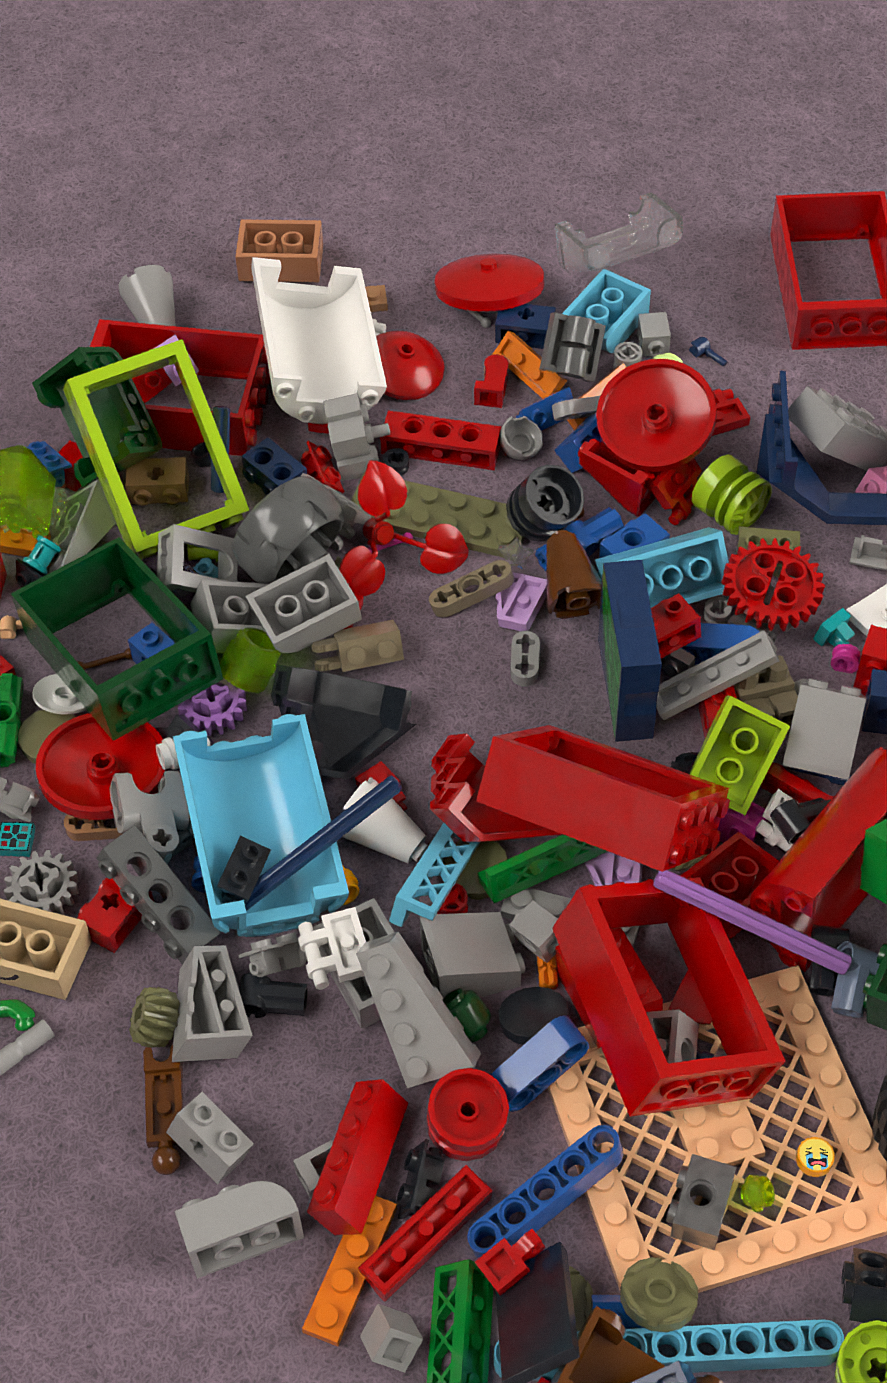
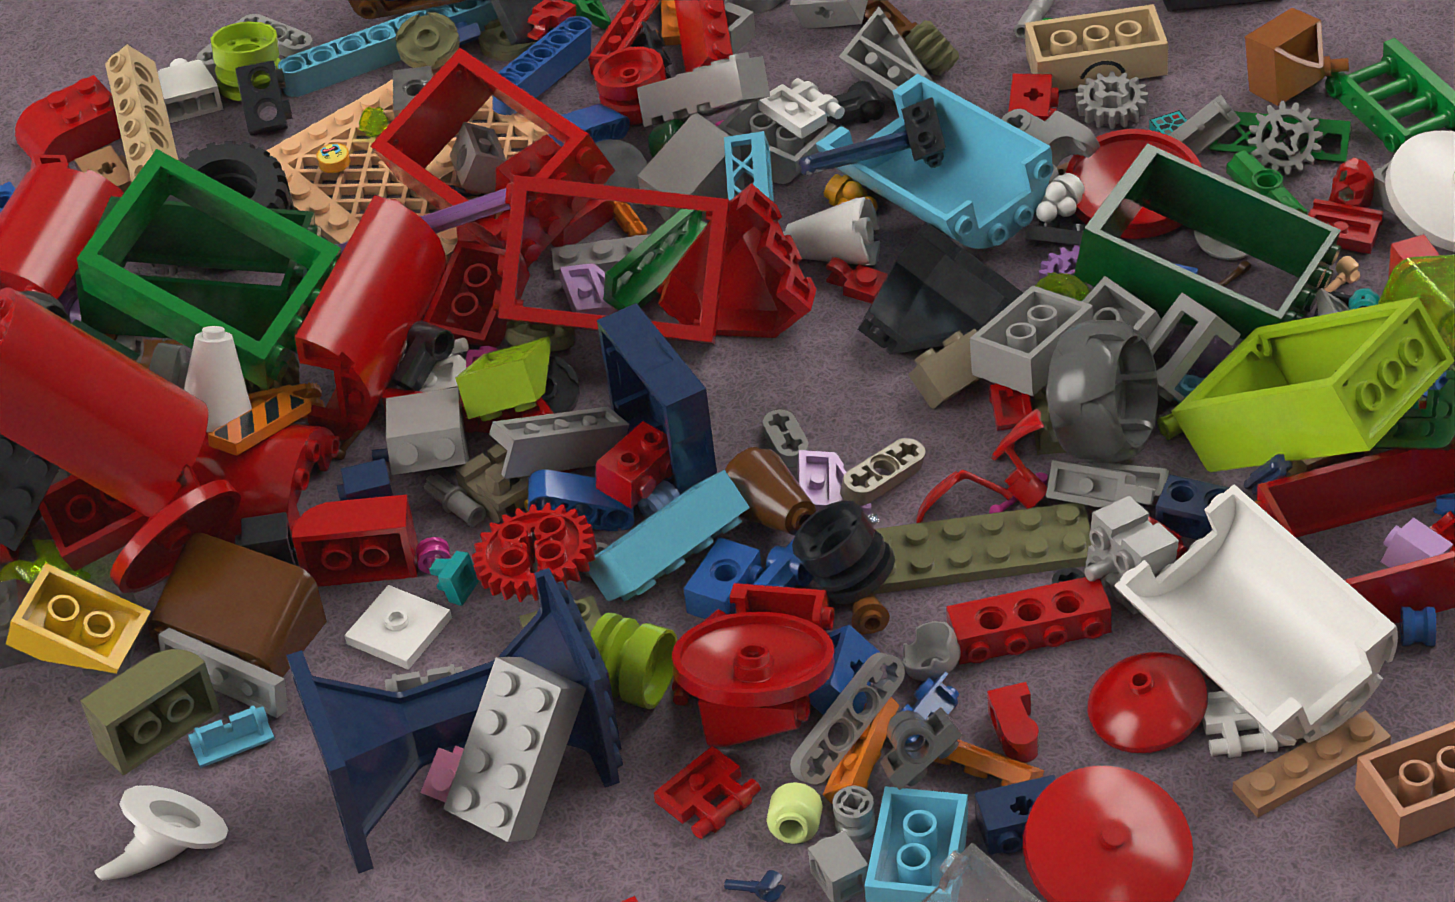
camera: 160 degrees right, 10 degrees down
(156, 876) = (1000, 93): dark grey brick -> none
(265, 955) = (866, 112): light grey hinge -> none
(534, 930) = (635, 215): light grey brick -> none

